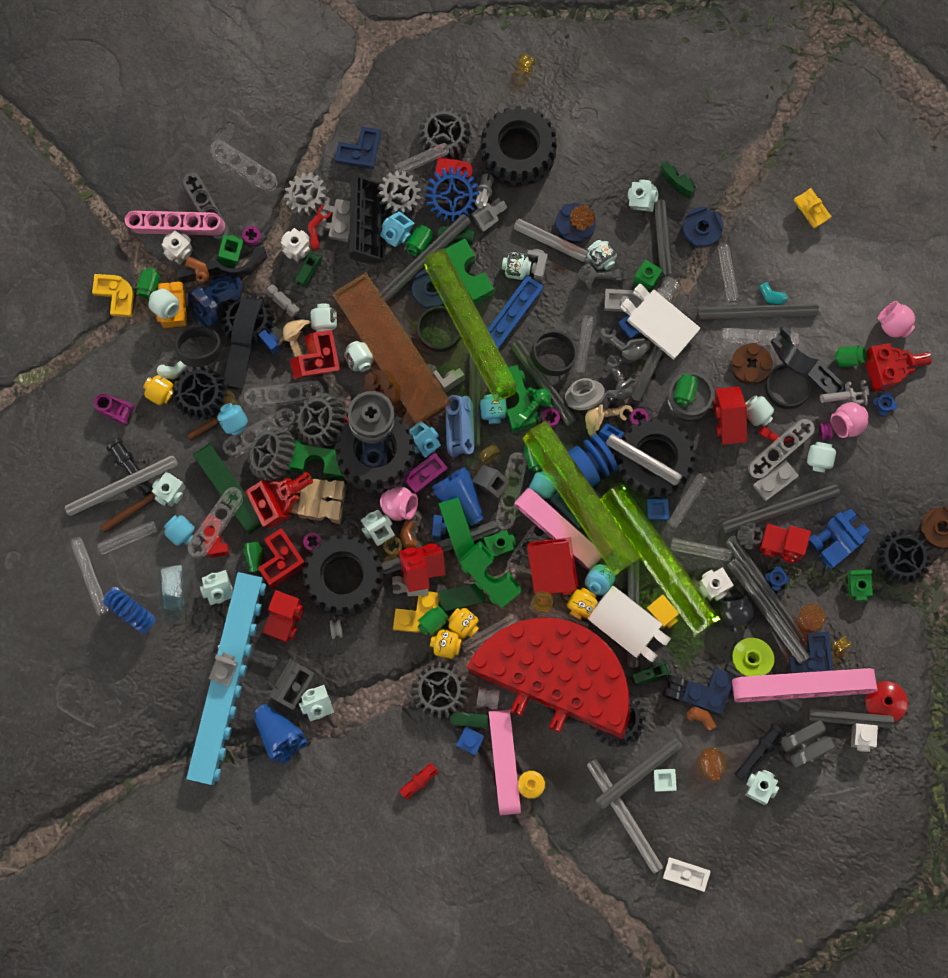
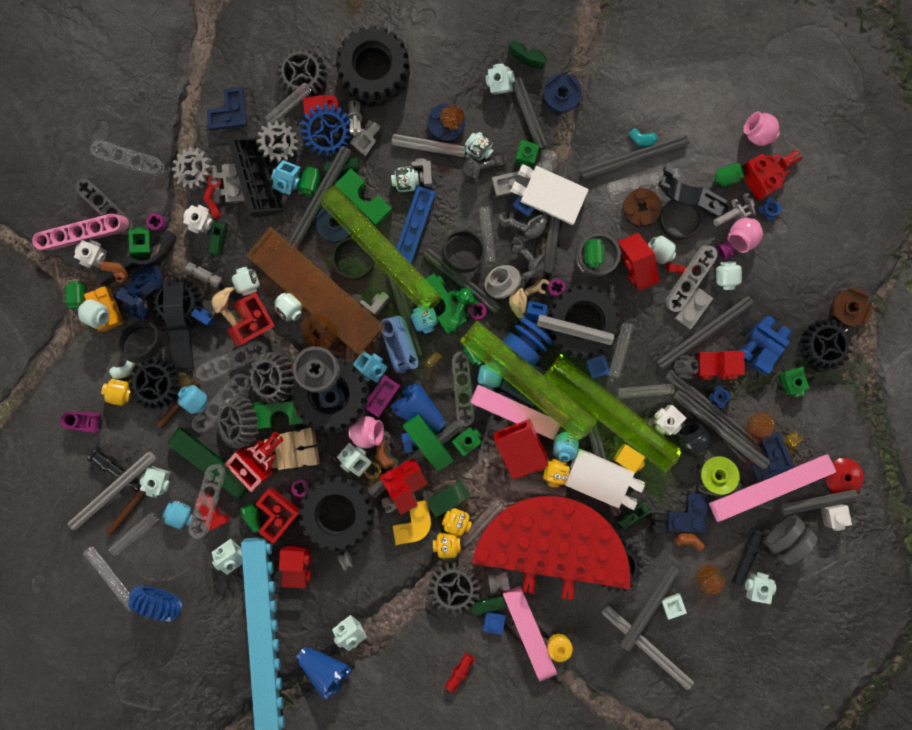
camera: 20 degrees left, 10 degrees up
(118, 289) = (52, 309): yellow plate -> none
(173, 588) = (189, 567): clear light blue slope -> none
(223, 669) = (256, 634): light grey bracket -> none
(291, 684) = (322, 624): dark grey brick -> none
(432, 621) = (429, 530): green brick -> none
(490, 481) = (442, 387): dark grey brick -> none
(500, 589) = (480, 482): green arch -> none
(542, 601) = (521, 483): clear yellow tile -> none
(686, 874) = (716, 682): white plate -> none
(728, 273) = (597, 129): clear axle -> none
(812, 208) = (656, 46): yellow hips -> none

